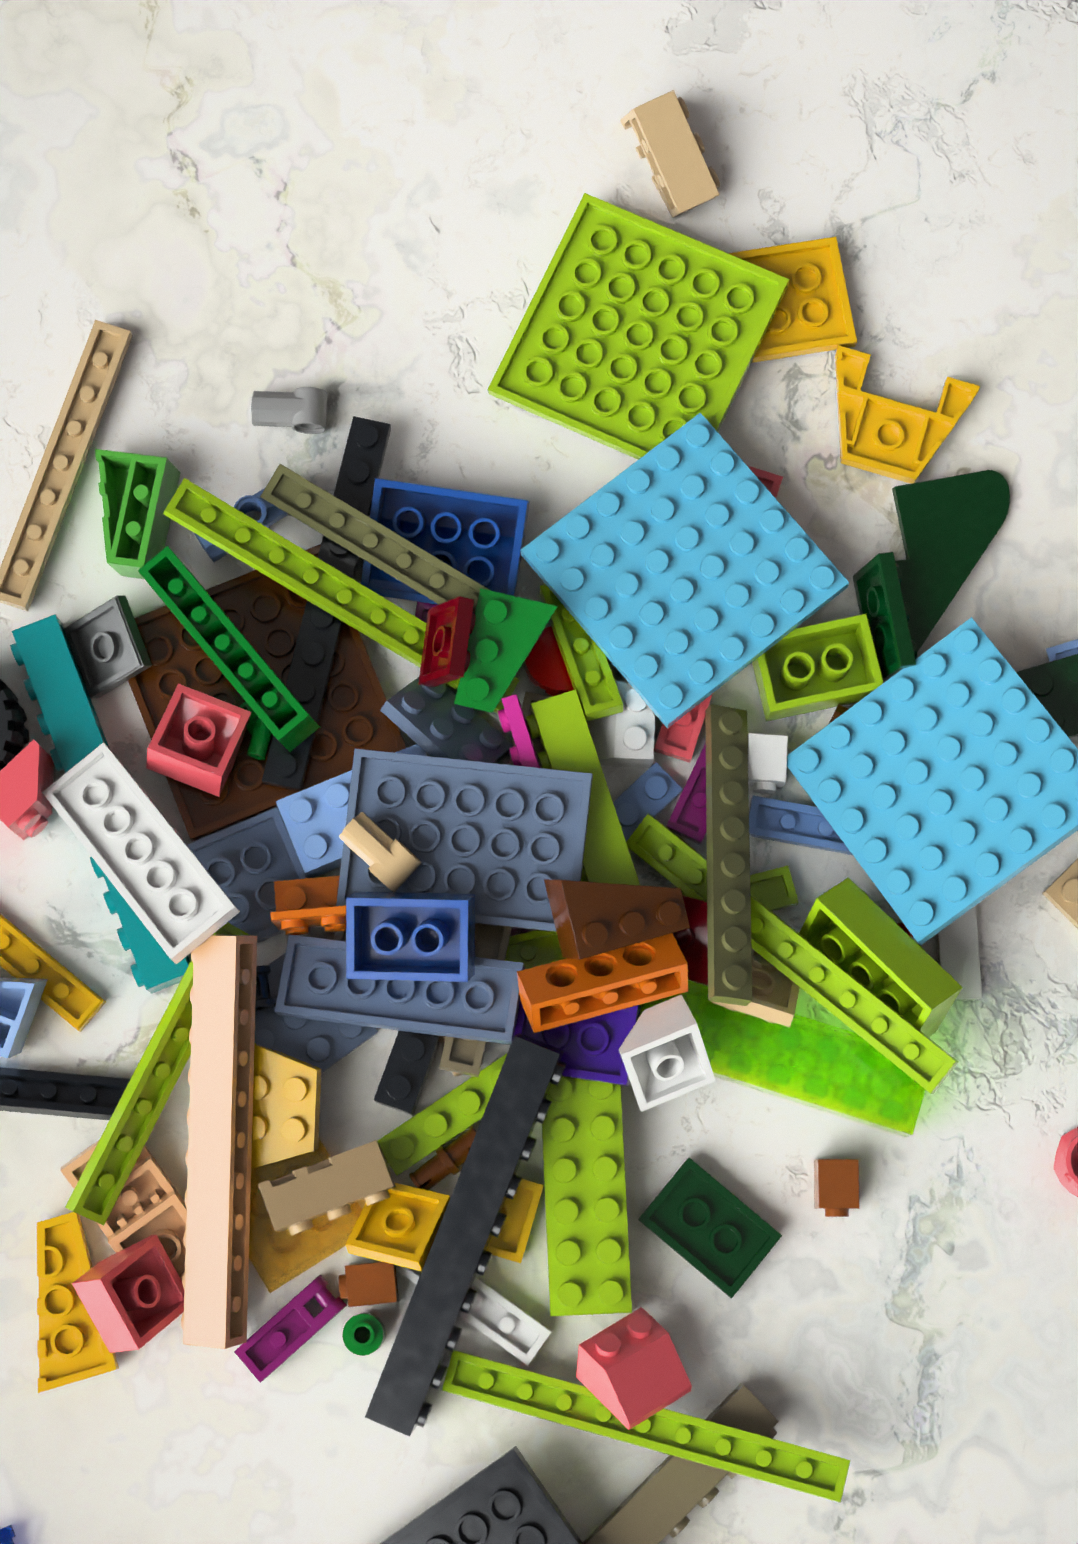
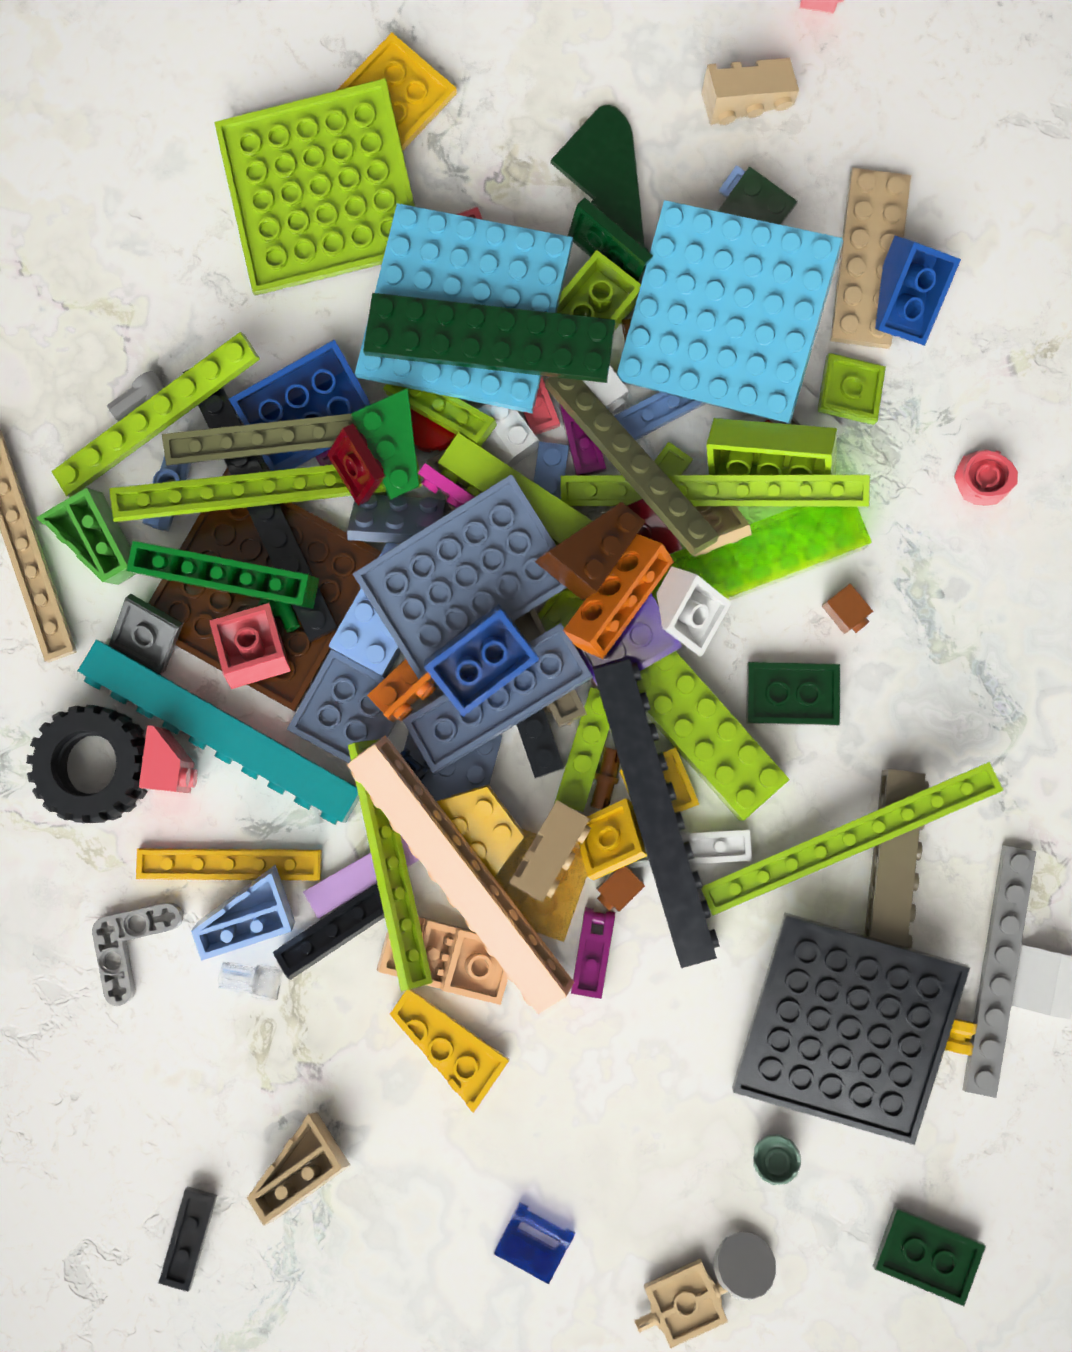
camera: 35 degrees left, 5 degrees up
(100, 1056) = (347, 883): none -> lavender tile
(132, 1295) = (483, 1009): coral slope -> none
(140, 853) = (272, 741): white plate -> none
(293, 438) = (156, 414): none -> lime plate
(376, 1329) = (630, 918): green brick -> none
(386, 857) = (426, 624): tan piece -> none
(632, 1368) = (817, 811): coral slope -> none
(673, 153) = (248, 55): tan wedge -> none
(683, 620) = (489, 337): none -> dark green plate
(889, 434) = (520, 131): yellow wing -> none
(1023, 960) = (851, 388): none -> lime plate

